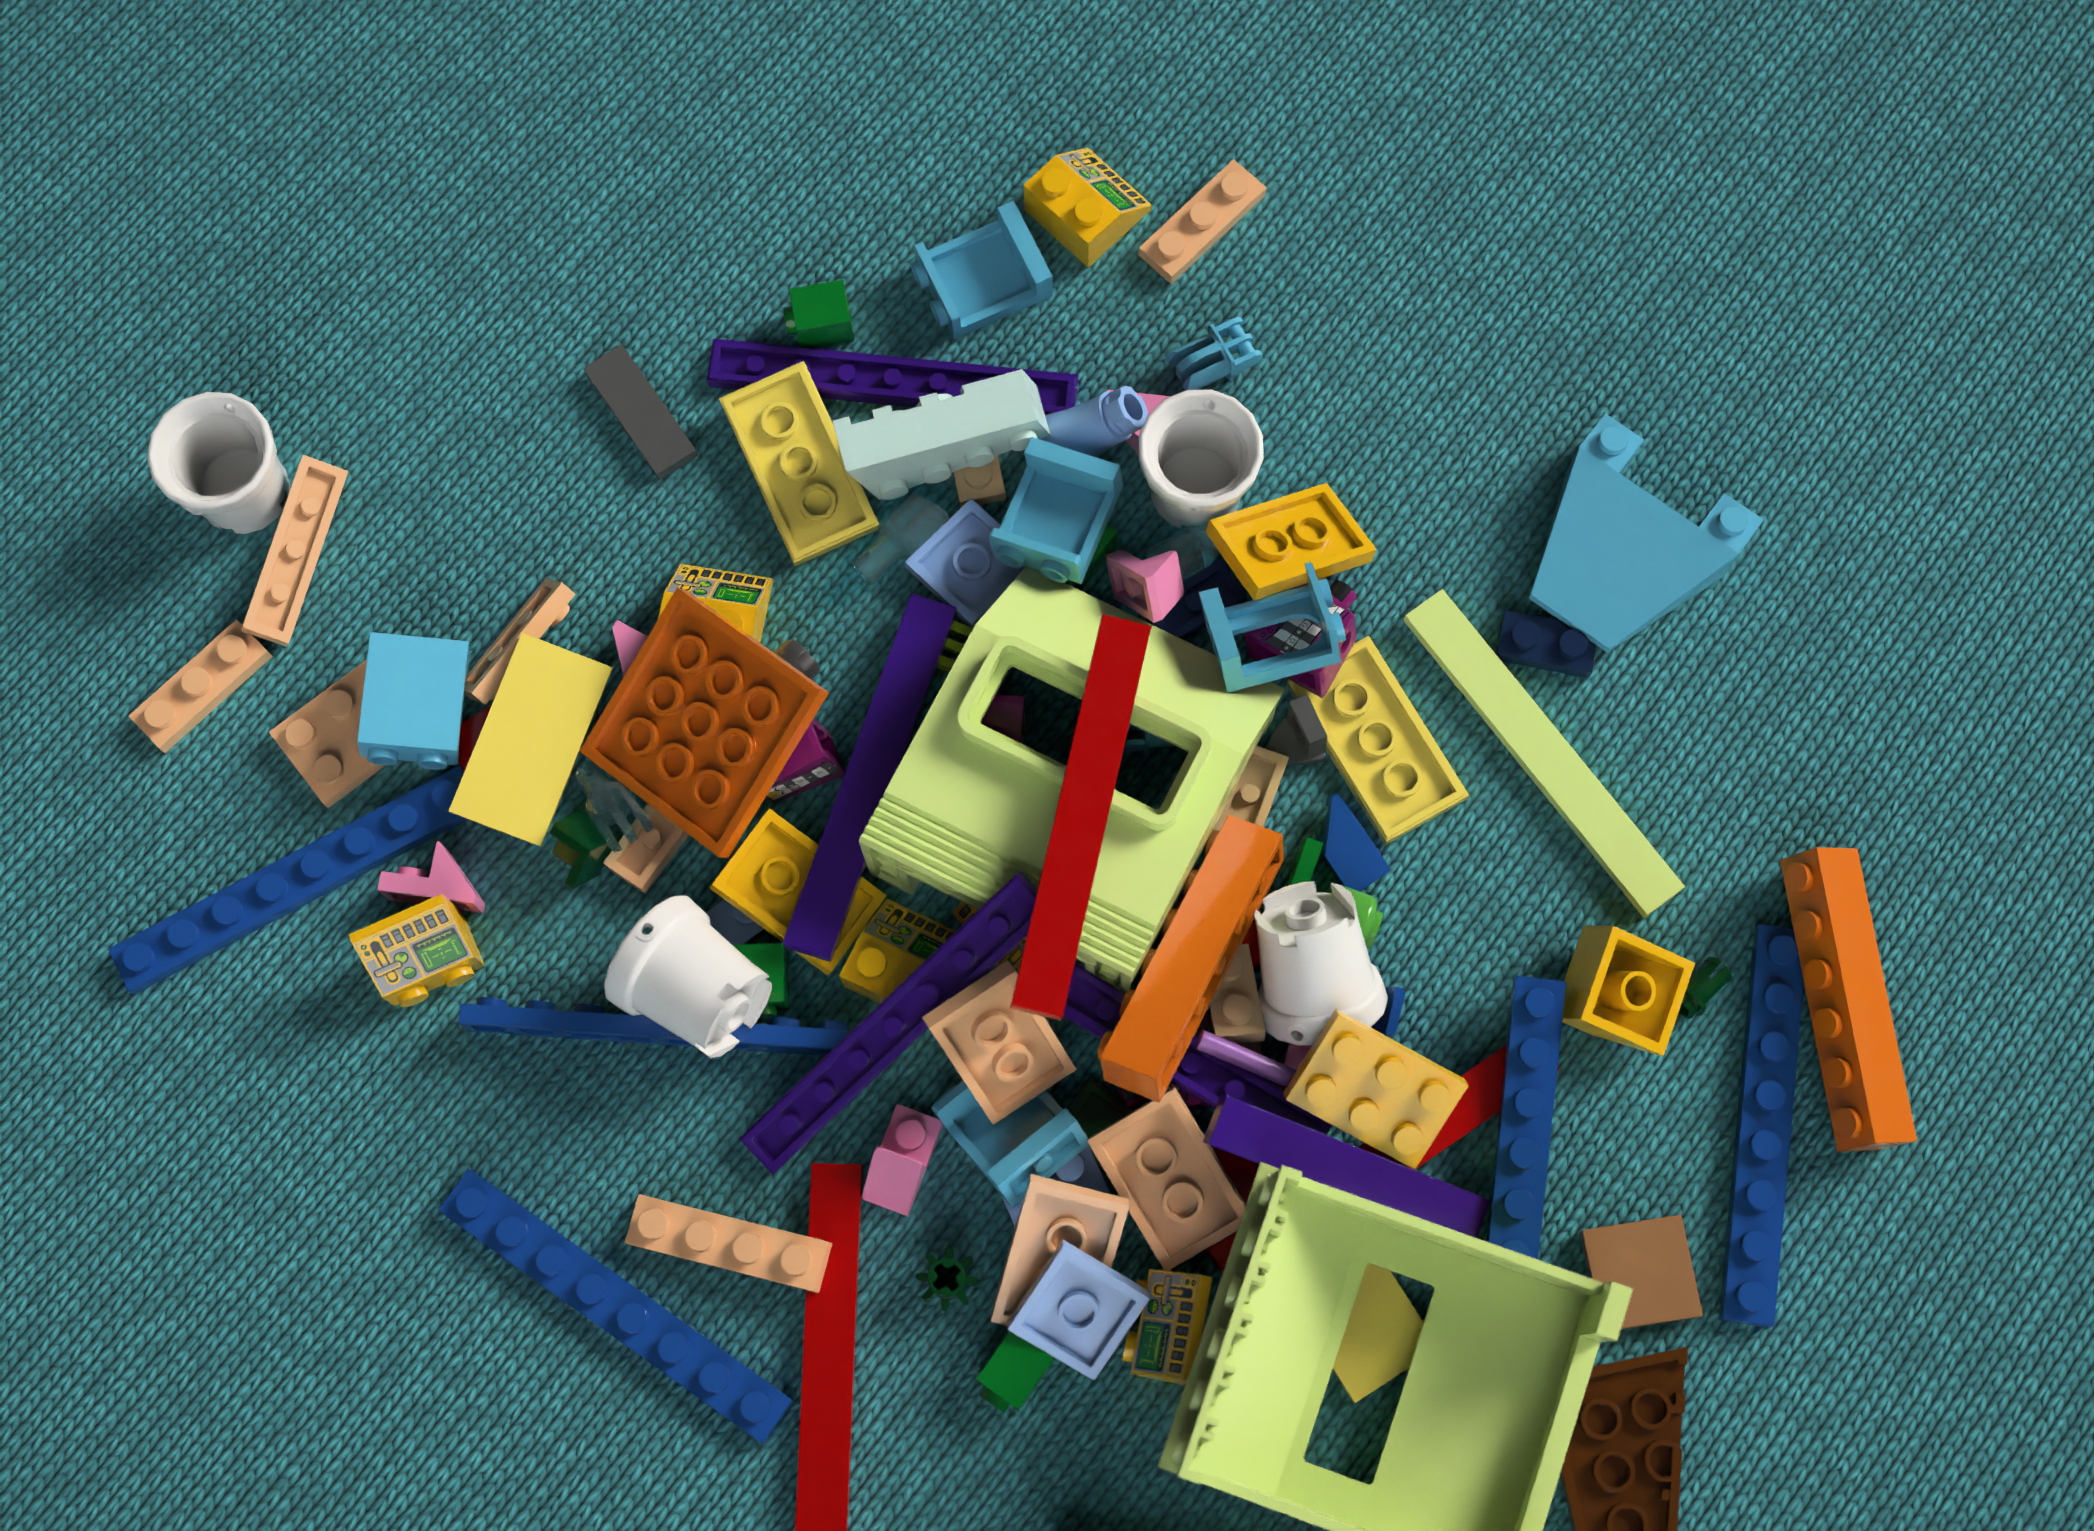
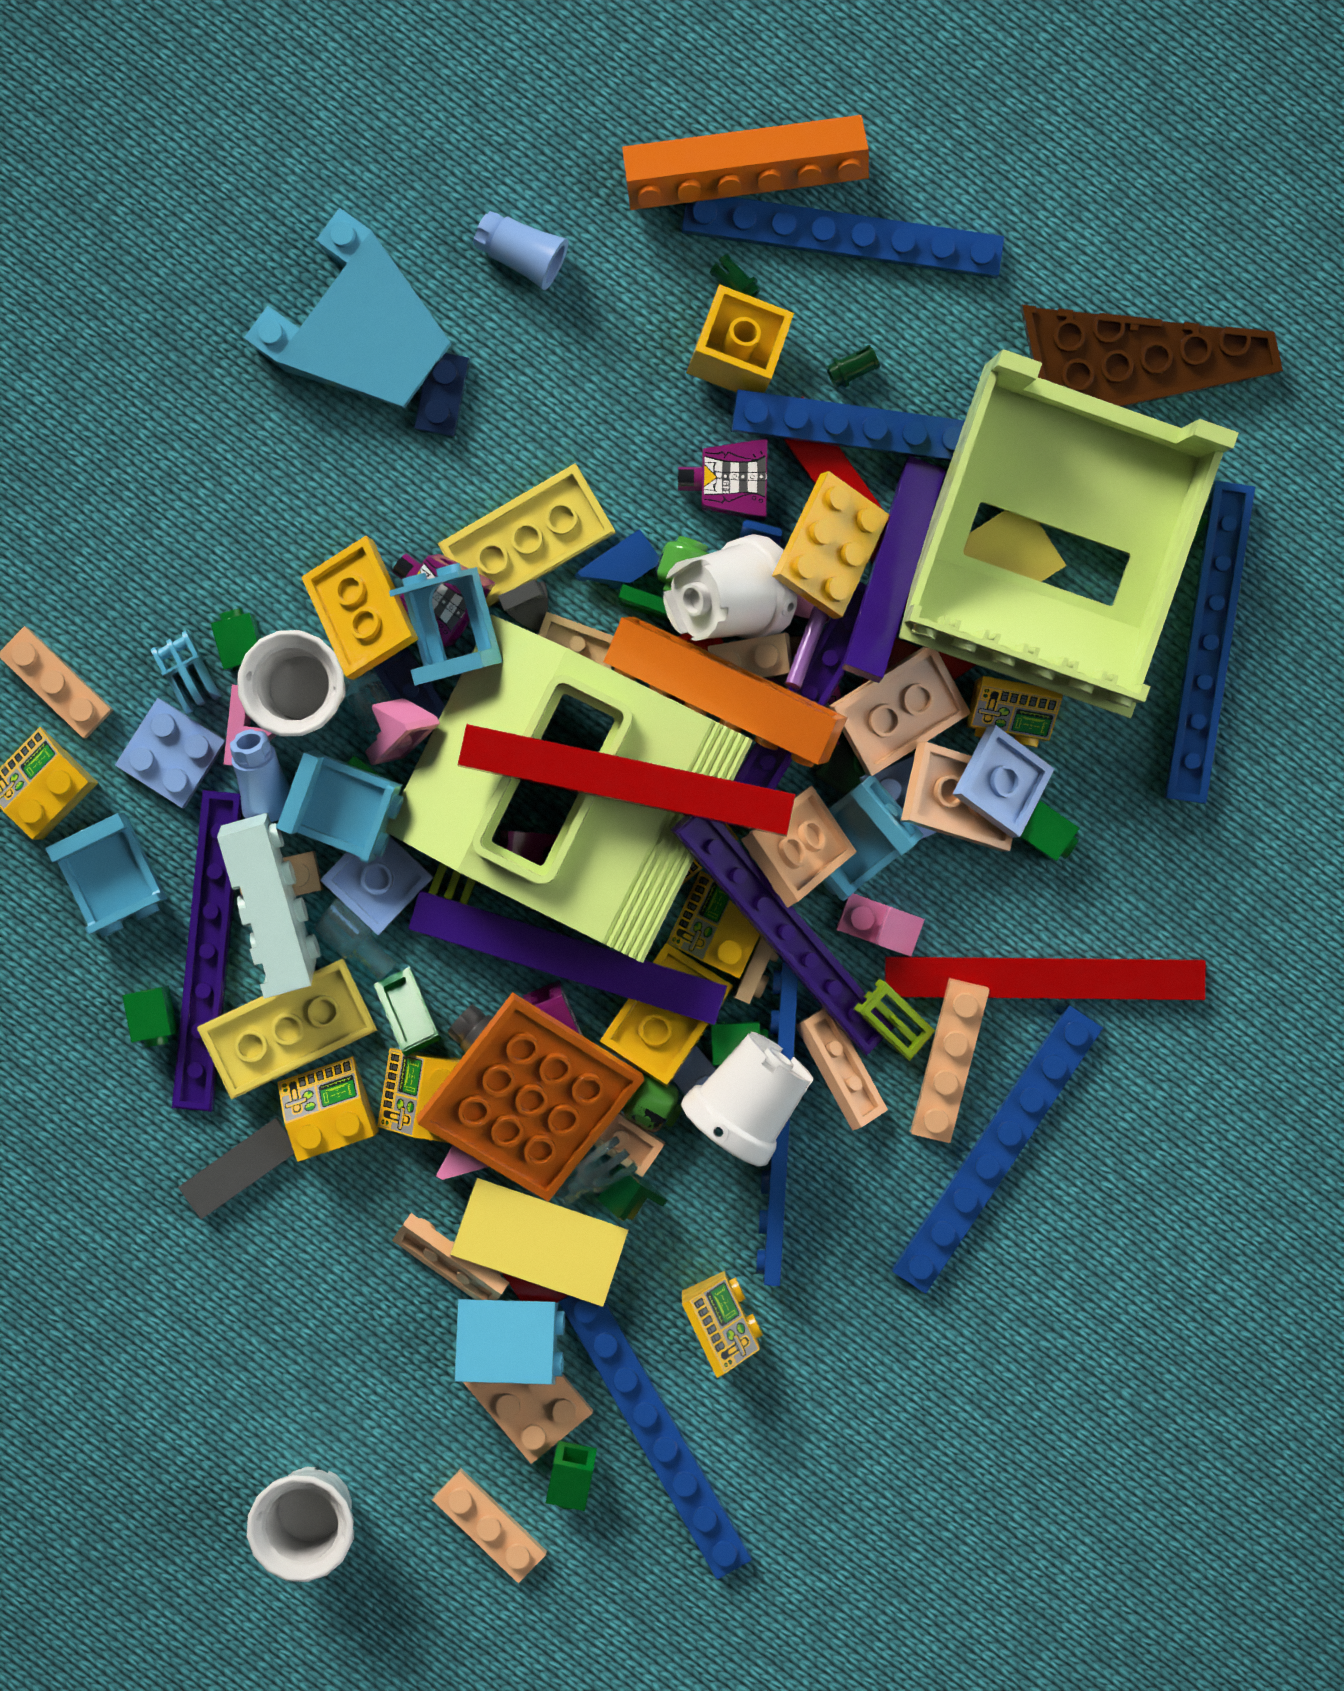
camera: 90 degrees left, 15 degrees up
(249, 775) = (571, 1476): none -> green brick
(294, 551) = (370, 1455): light nougat plate -> none
(445, 878) = (660, 1304): bright pink slope -> none
(690, 872) = (653, 1105): none -> bright green head
(702, 504) = (326, 1109): none -> yellow slope
(721, 1107) = (841, 1069): none -> light nougat plate
(808, 1143) = (874, 1000): none -> lime tile
(813, 594) = (407, 1011): none -> tile
(836, 998) = (753, 980): none -> tan plate
(950, 1265) = (987, 886): dark green gear -> none
(1121, 340) = (171, 753): none -> light blue plate
(1264, 403) = (235, 637): none -> green brick
(1454, 979) = (730, 479): none -> torso
(1544, 753) = (536, 401): yellowish green tile -> none
(1599, 1131) = (852, 366): none -> dark green pin
(1652, 1261) = (960, 336): medium nougat tile -> none
(1725, 734) = (521, 248): none -> light blue plant

